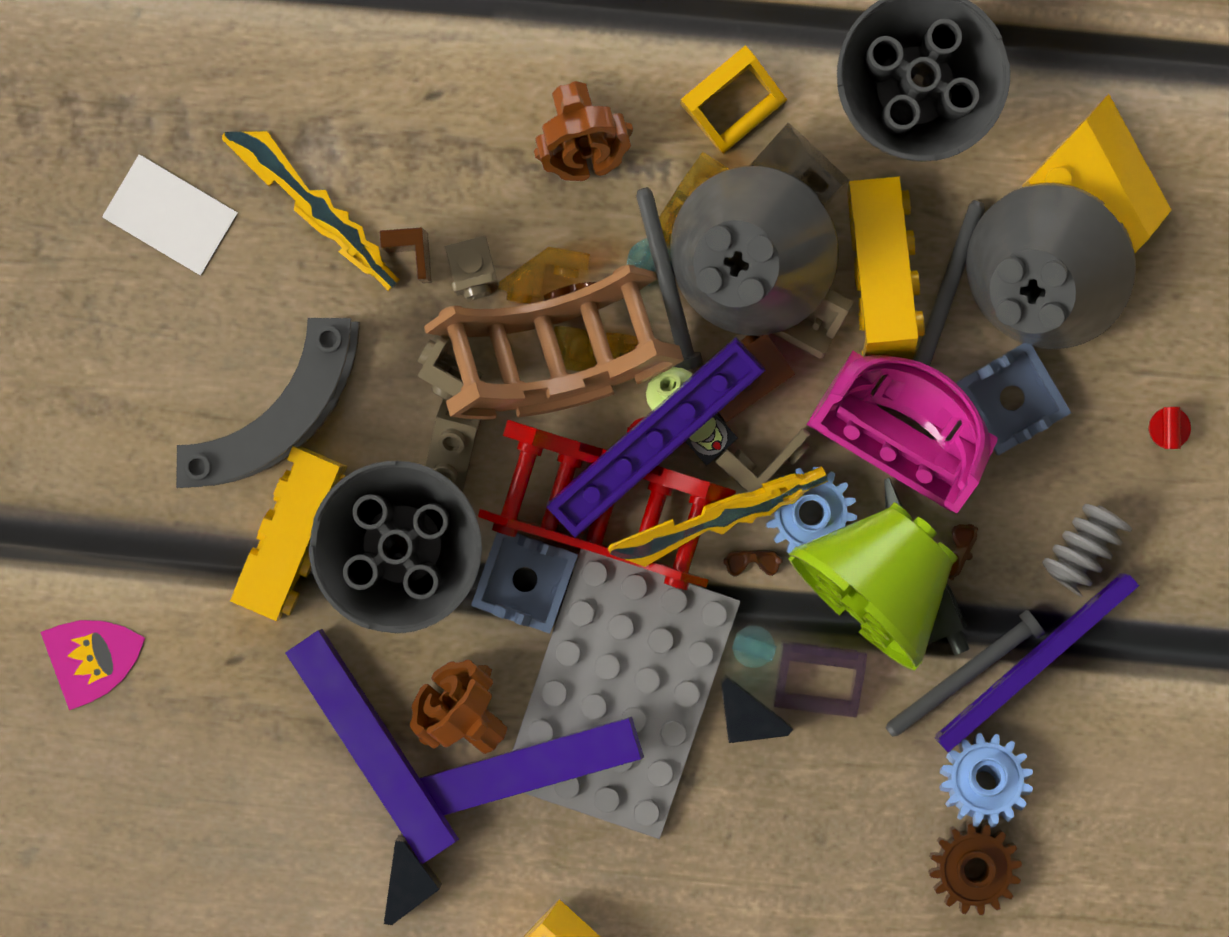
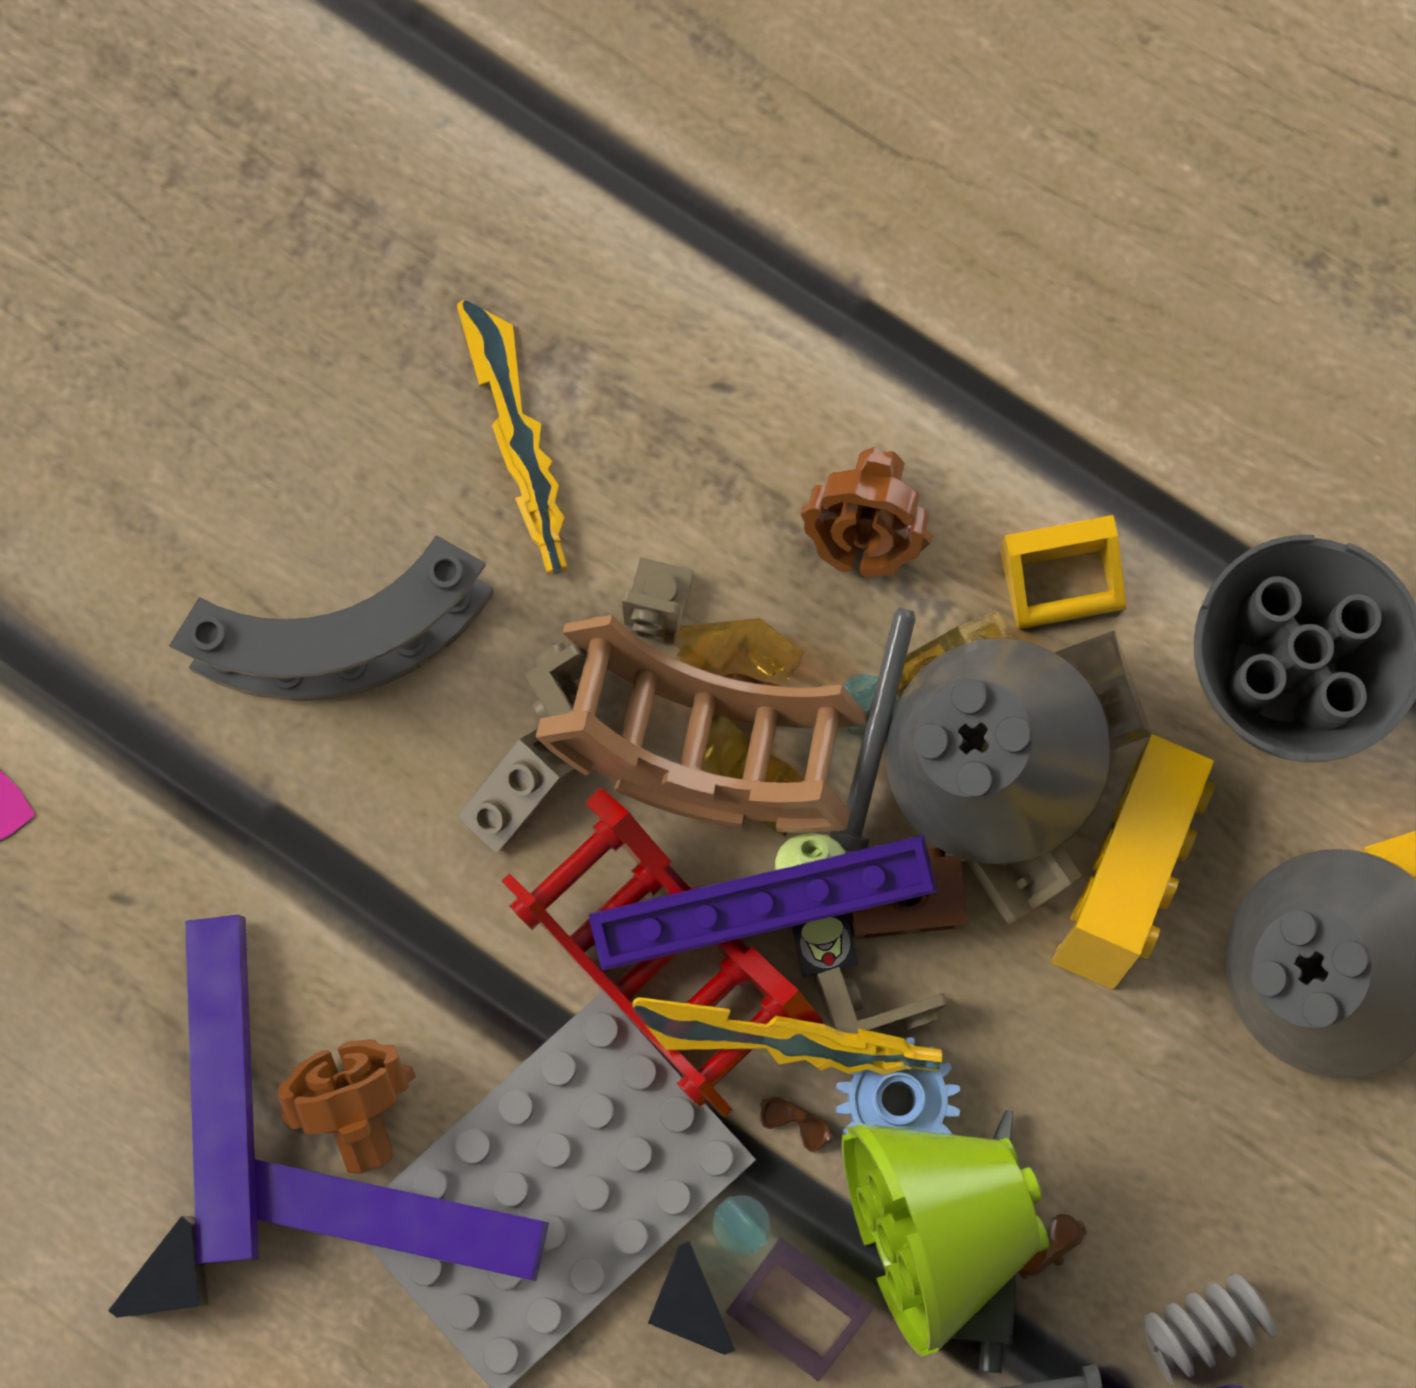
camera: 30 degrees right, 10 degrees down
(169, 214) = (349, 356): white sticker -> none
(285, 534) = (272, 783): yellow wedge -> none
(355, 538) = (346, 824): dark grey cone -> none
(410, 240) = (602, 524): reddish brown panel -> none
(532, 608) = (475, 986): sand blue piece -> none
(935, 468) = (1110, 1035): dark pink piece -> none
(949, 285) = (1120, 999): dark grey bar -> none
(1041, 404) = (1242, 1071): sand blue piece -> none
(1169, 428) = (1383, 1238): red plate -> none

